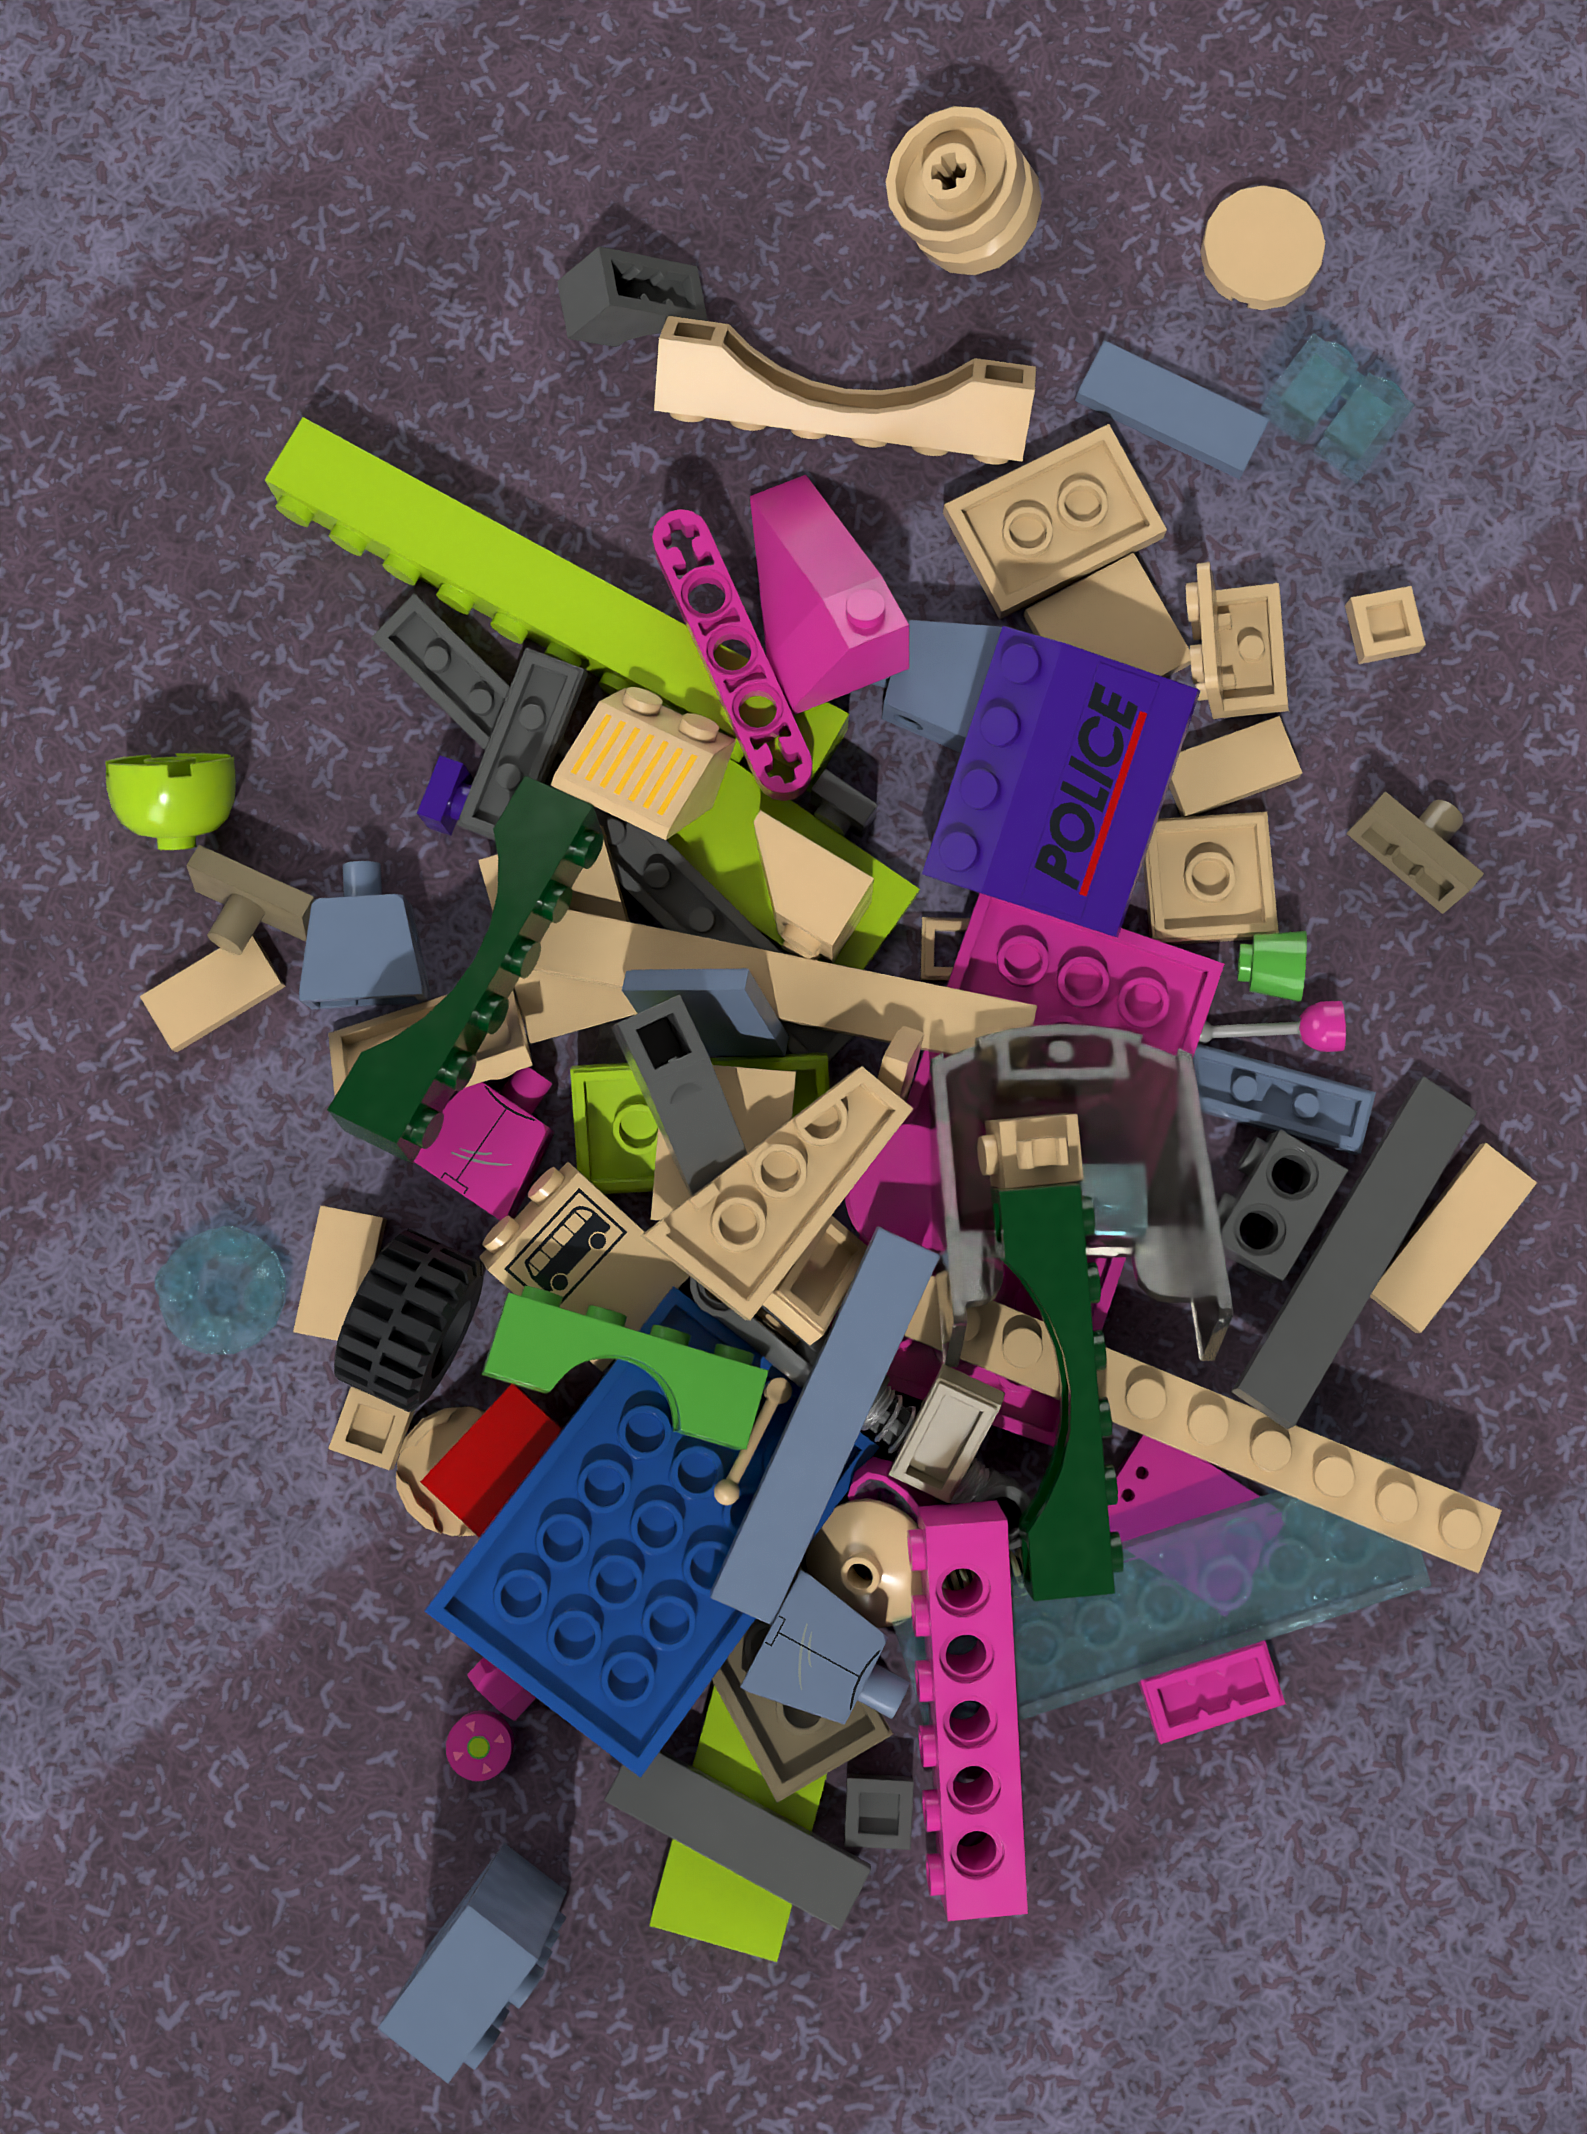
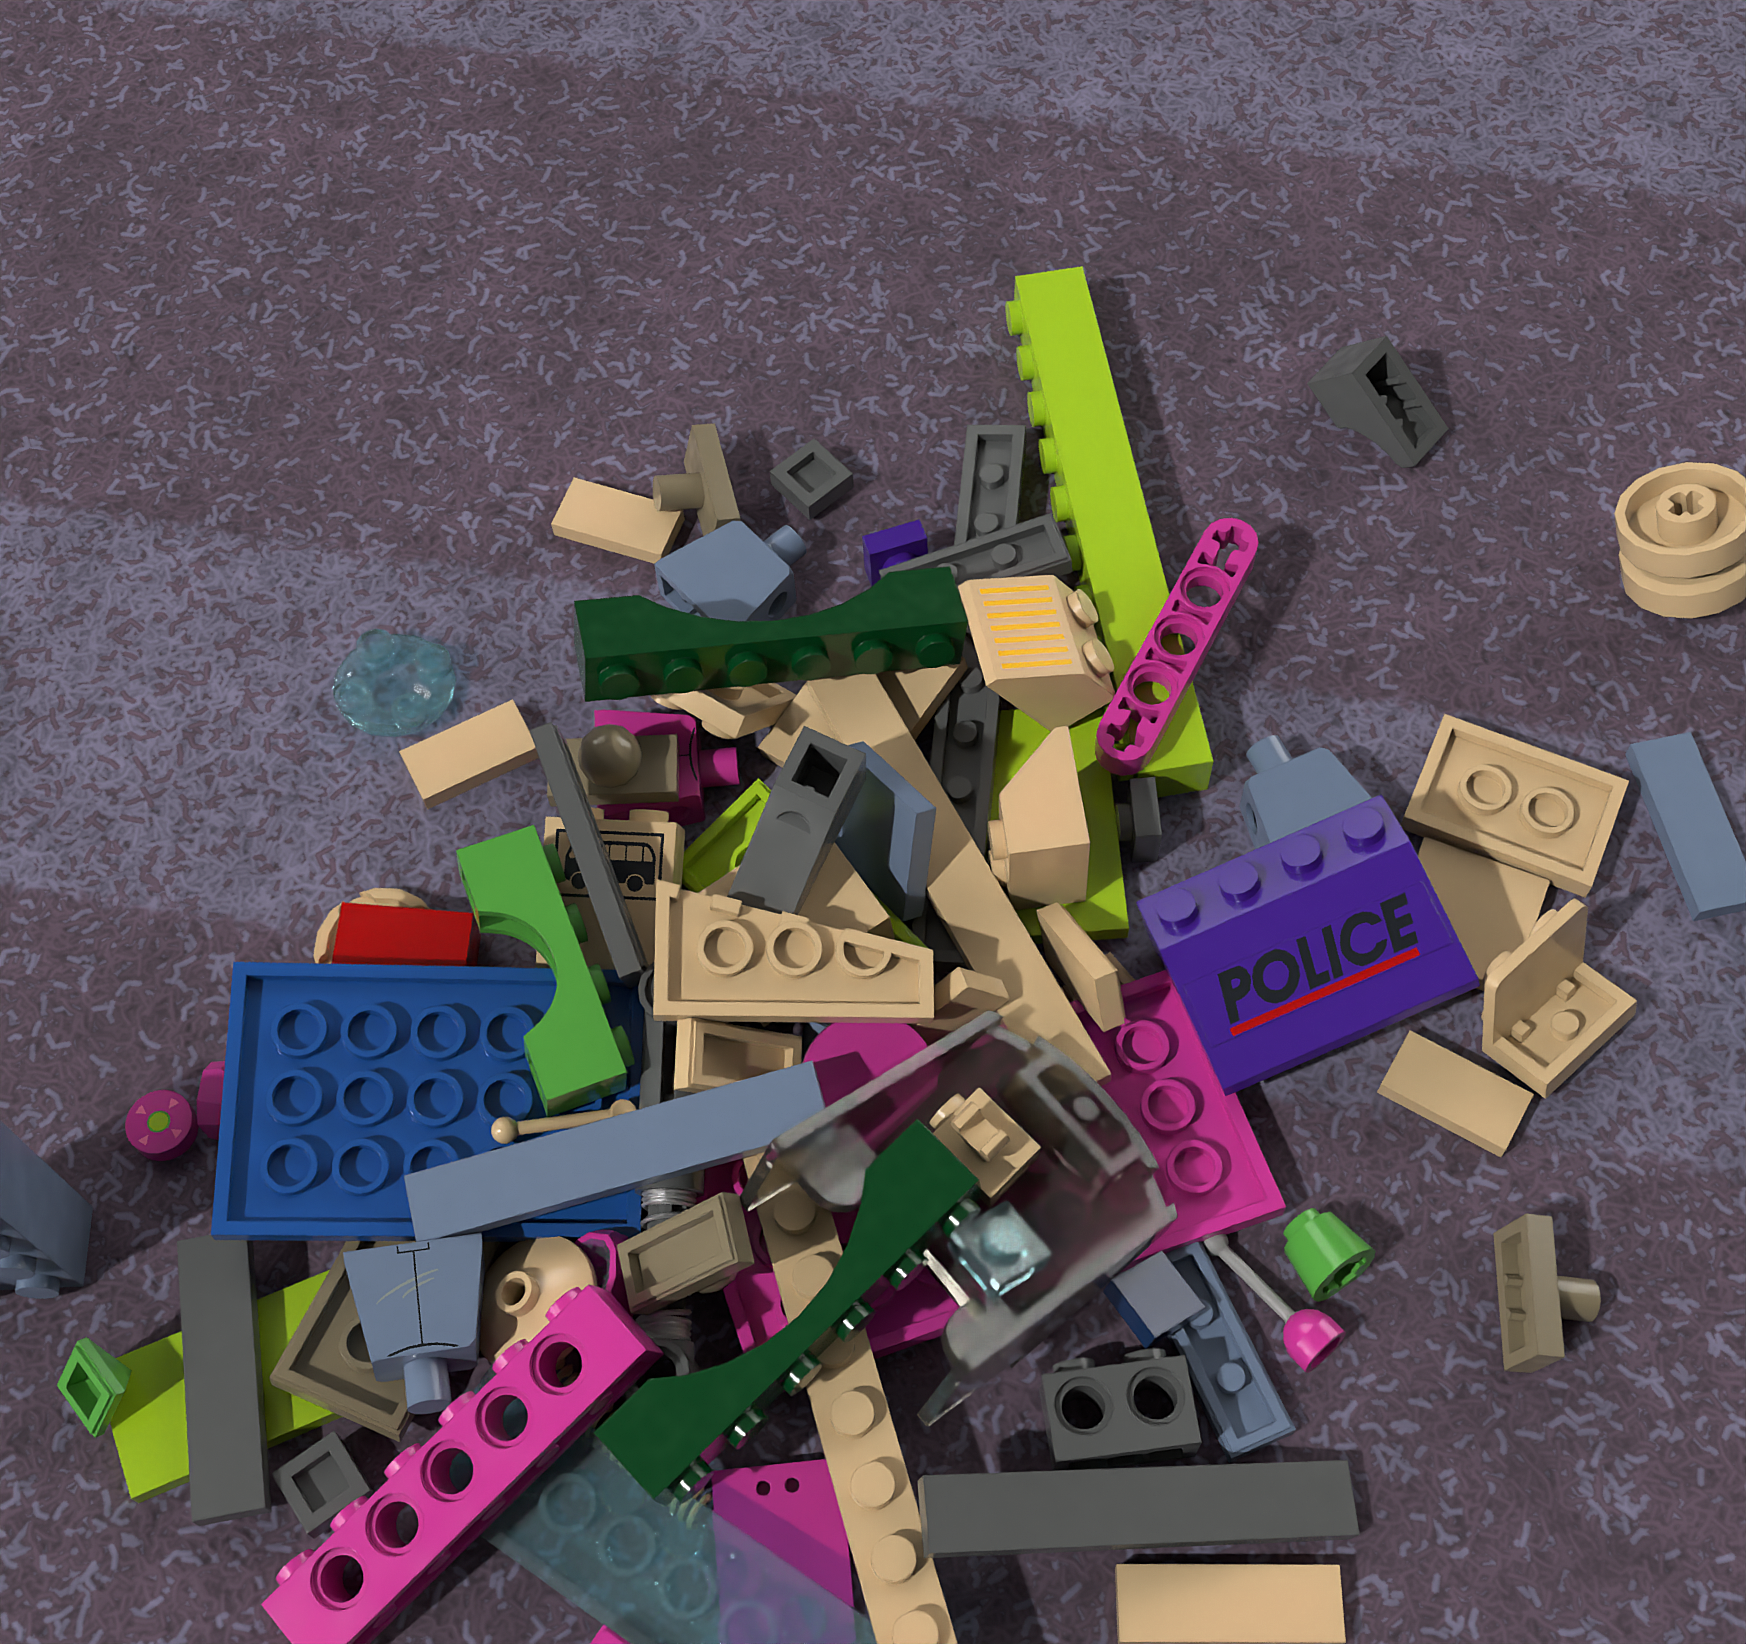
camera: 55 degrees right, 20 degrees down
(172, 795) = (737, 387): lime cylinder -> none
(311, 803) = (811, 479): none -> dark grey plate
(370, 1429) = (365, 857): tan plate -> none
(408, 1320) = (458, 794): black tyre -> none
(475, 1180) = (625, 767): none -> dark tan tile
(560, 1262) = (590, 853): none -> dark grey tile
(674, 1936) = (93, 1385): none -> bright green slope
(717, 375) = (1383, 492): tan arch -> none
(821, 600) = (1276, 679): dark pink wedge -> none
(934, 955) = (1082, 966): none -> tan tile
(1210, 879) = (1348, 1146): tan tile -> none
(1228, 1114) = (1153, 1299): none -> tile
(1385, 625) = (1693, 1120): tan plate -> none

